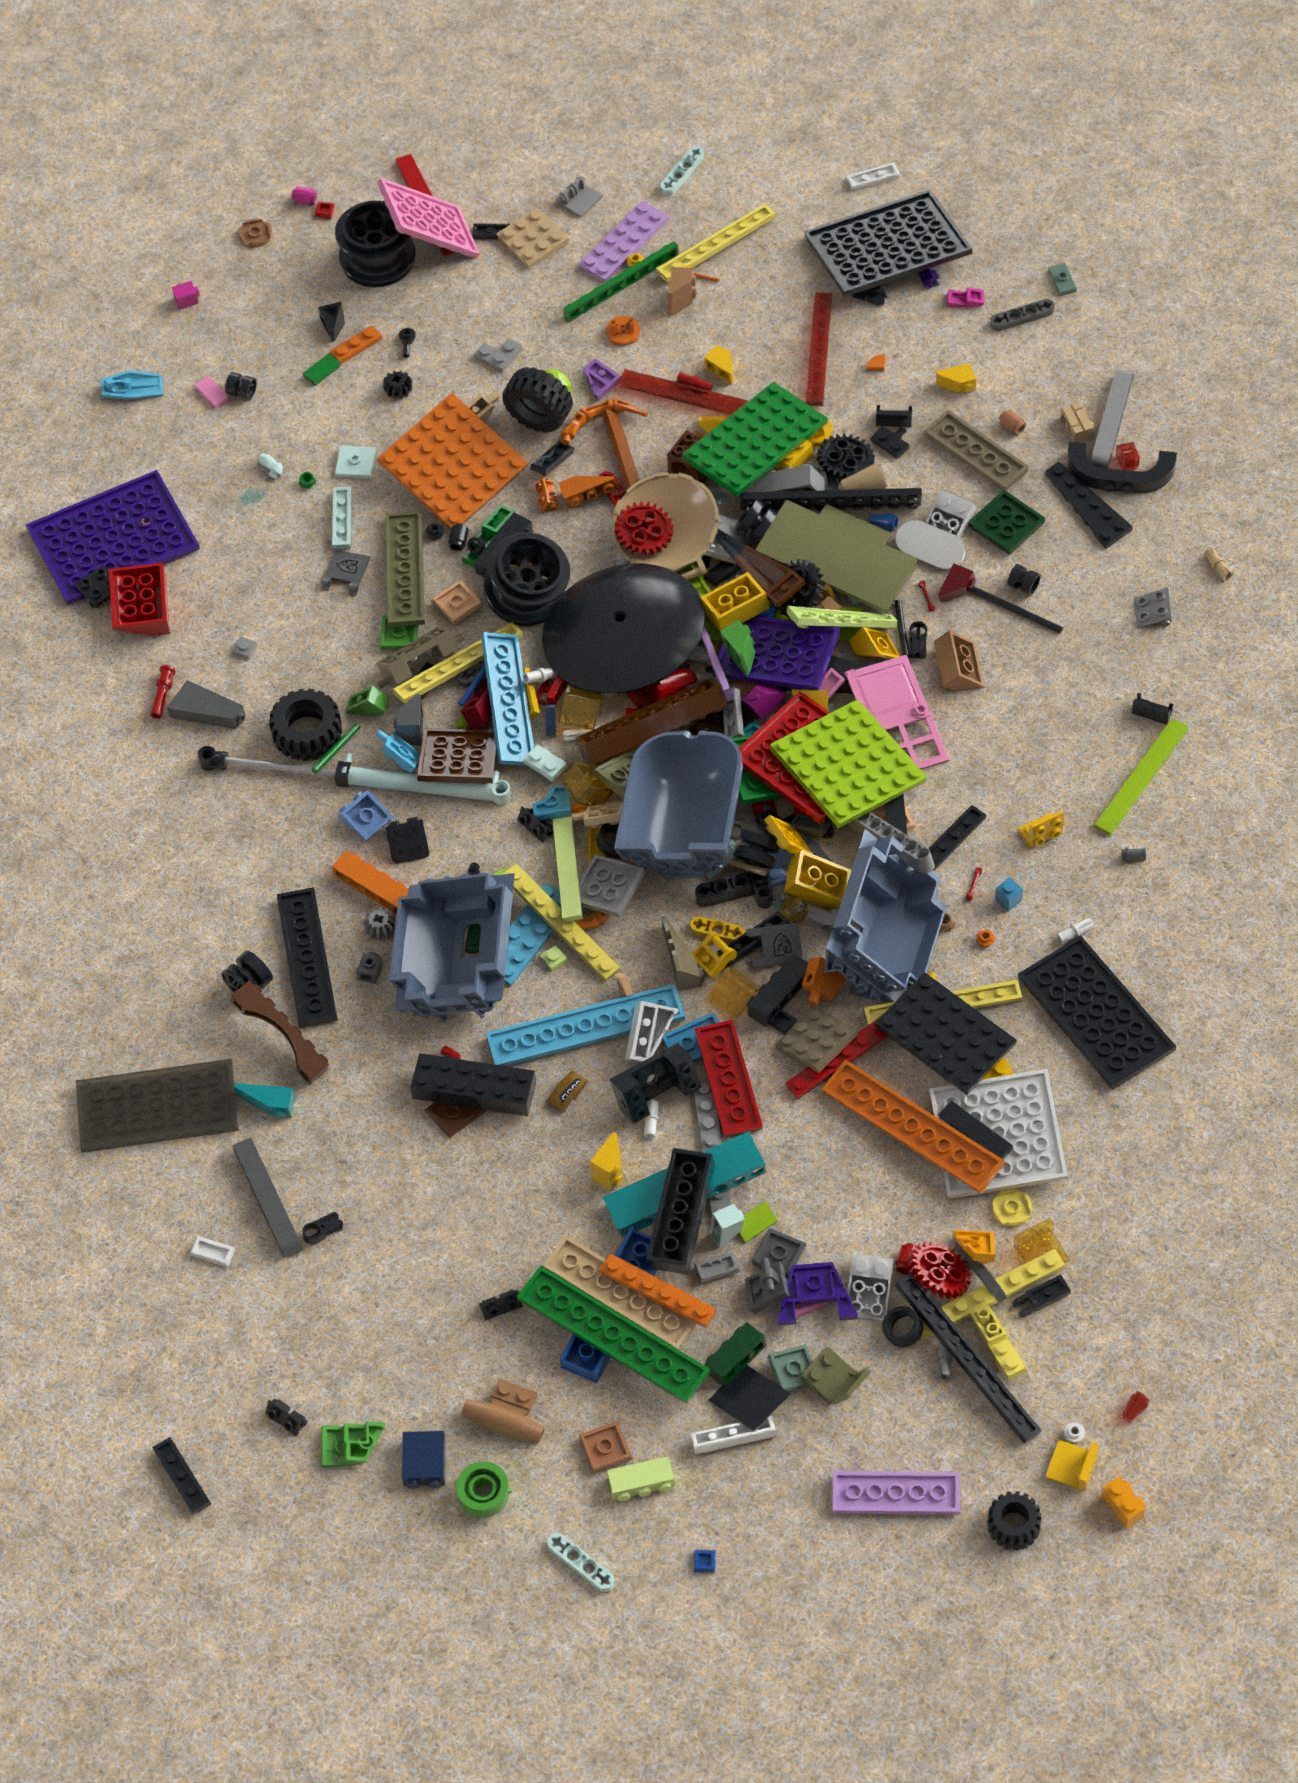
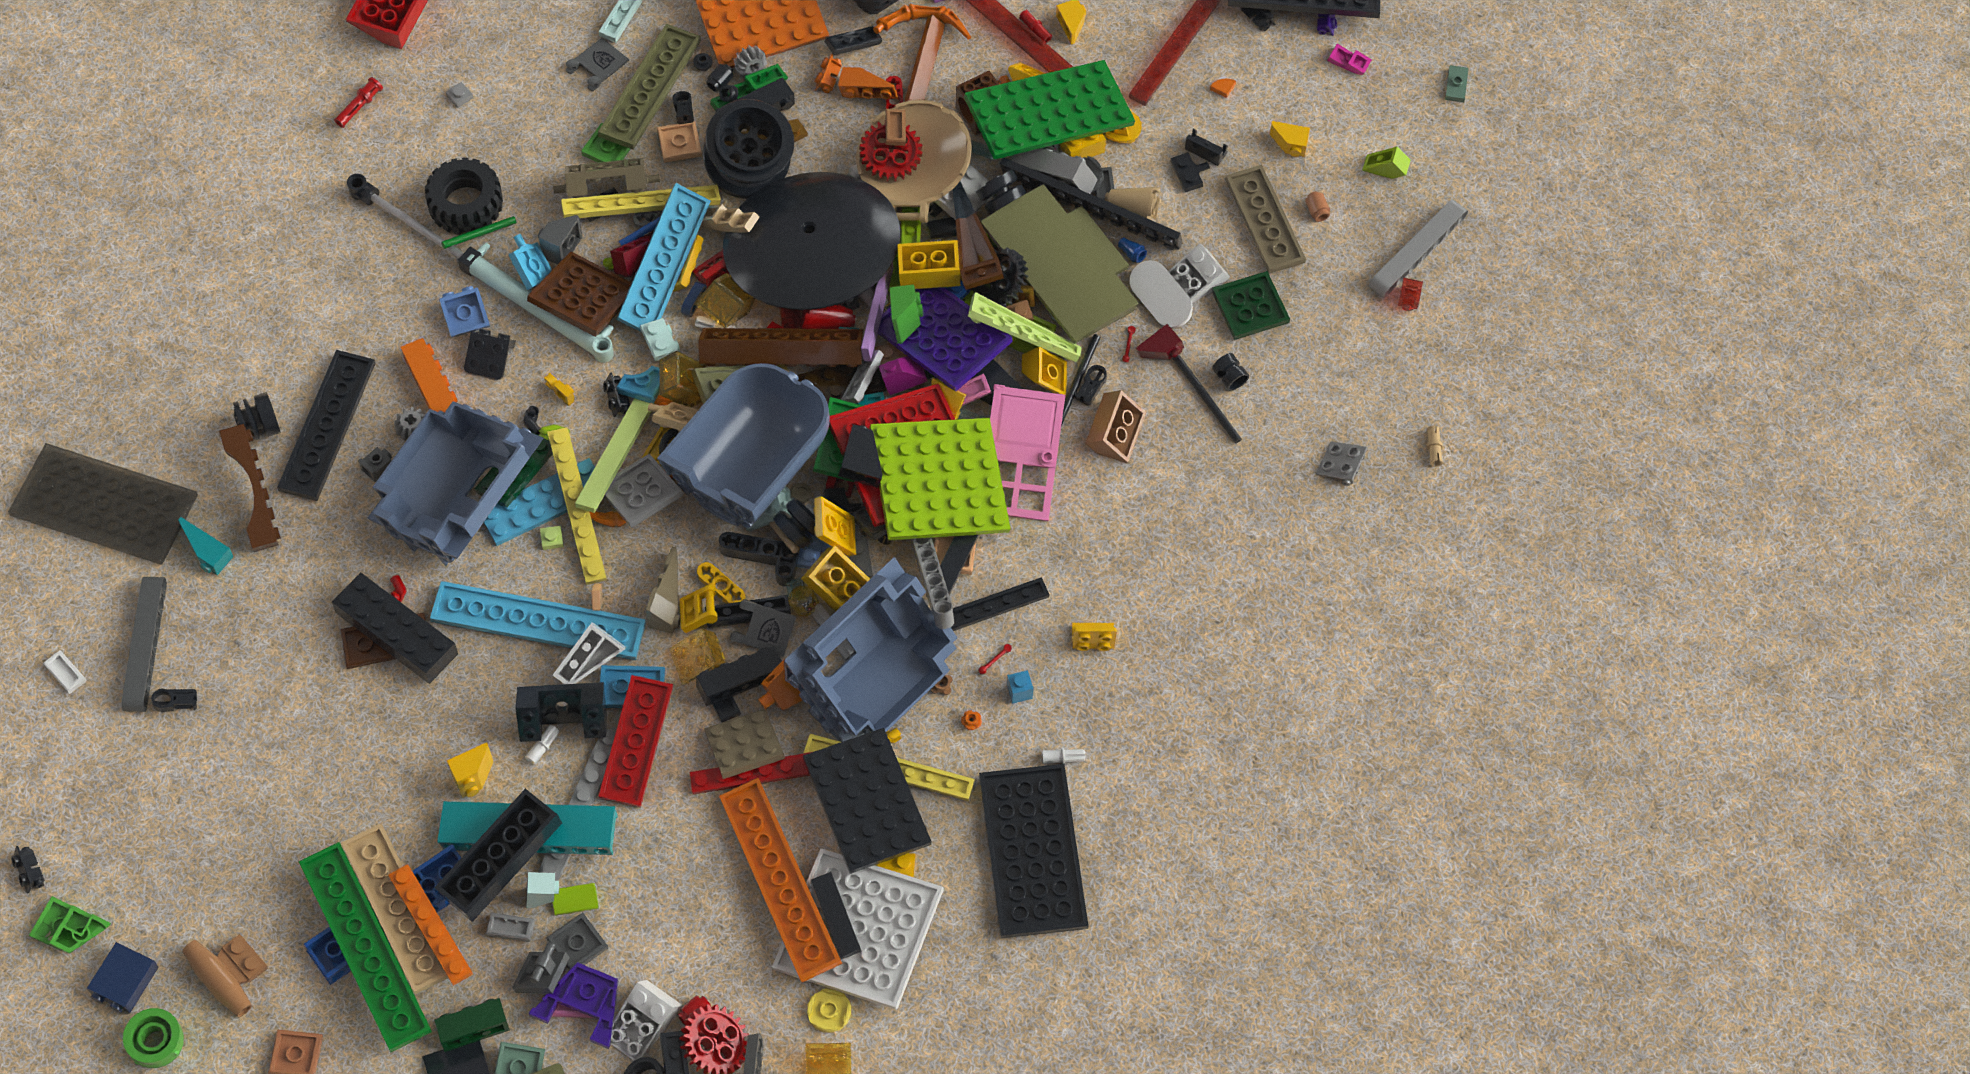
camera: 20 degrees right, 5 degrees up
(206, 707) = (386, 135): dark grey slope -> none
(368, 702) = (536, 202): bright green slope -> none
(445, 575) = (683, 108): none -> black piece
(477, 511) = (750, 60): none -> light grey gear
(487, 840) = (562, 390): none -> yellow plate
(494, 1307) = (281, 859): black hinge -> none
(539, 675) = (706, 250): white pin -> none
(545, 642) = (728, 220): none -> tan slope
(566, 1090) = (481, 675): pearl gold slope -> none
(639, 507) = (895, 127): none -> medium nougat tile
(780, 773) = (861, 458): none -> black slope
(836, 449) = (1132, 166): black gear -> none
(977, 1244) = (767, 1033): light orange wing -> none
(1021, 313) = (1394, 99): dark grey beam -> none
(1046, 364) = (1387, 163): none -> lime slope
(1077, 422) = (1381, 235): tan brick -> none
(1096, 513) = (1345, 339): black wing -> none
(1117, 479) = (1391, 316): black arch -> none
(1133, 854) = (1168, 705): dark grey pin -> none
(1141, 777) = (1225, 629): lime tile -> none
(1152, 710) = (1277, 565): black hinge -> none

